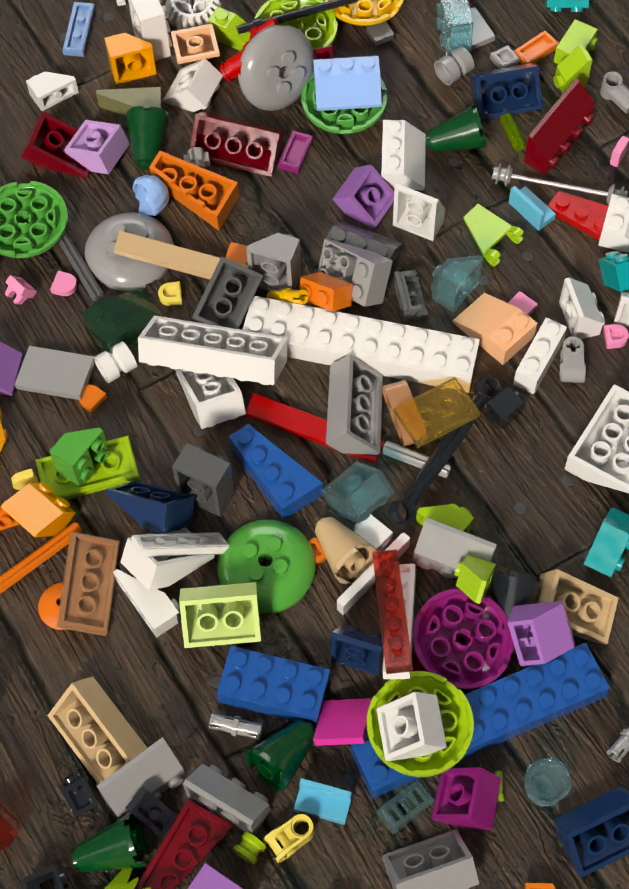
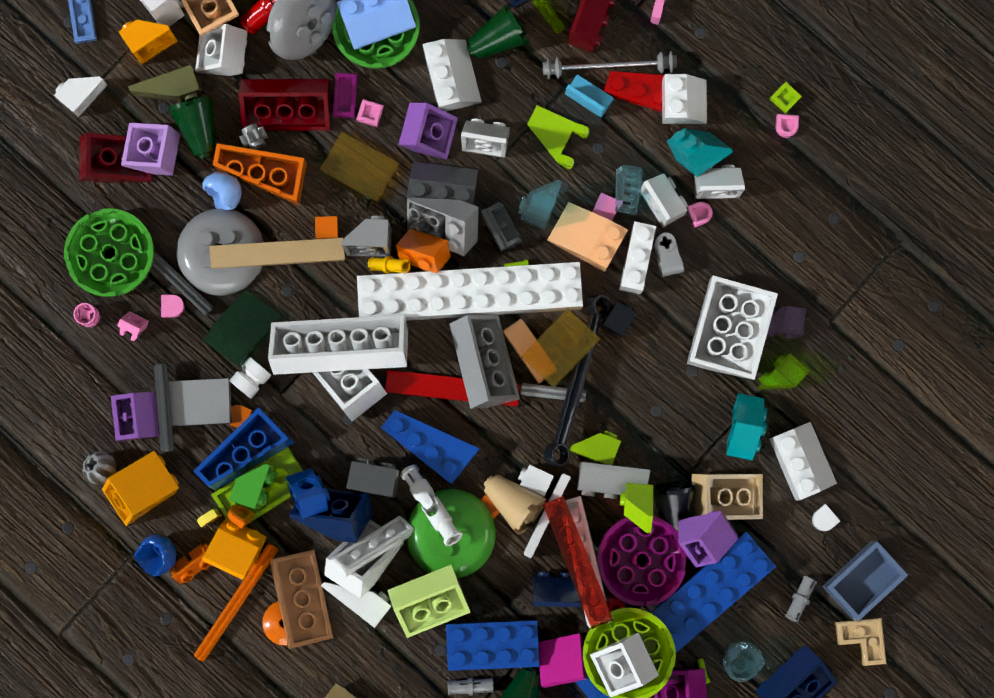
camera: 20 degrees left, 20 degrees up
(20, 366) = (163, 407): none -> dark grey axle
(57, 483) = (240, 515): none -> orange tile
(99, 410) = (244, 449): none -> blue wedge
(132, 476) = (308, 493): none -> blue brick
(170, 294) = (276, 287): light yellow tile -> none
(227, 295) = (334, 284): dark grey slope -> none
(255, 524) = (430, 503): none -> white piece
(288, 211) = (359, 166): none -> clear yellow tile
(314, 171) = (370, 113): none -> bright pink tile
(358, 492) = (512, 447): clear light blue brick -> none
(553, 280) = (635, 181): none -> clear light blue slope

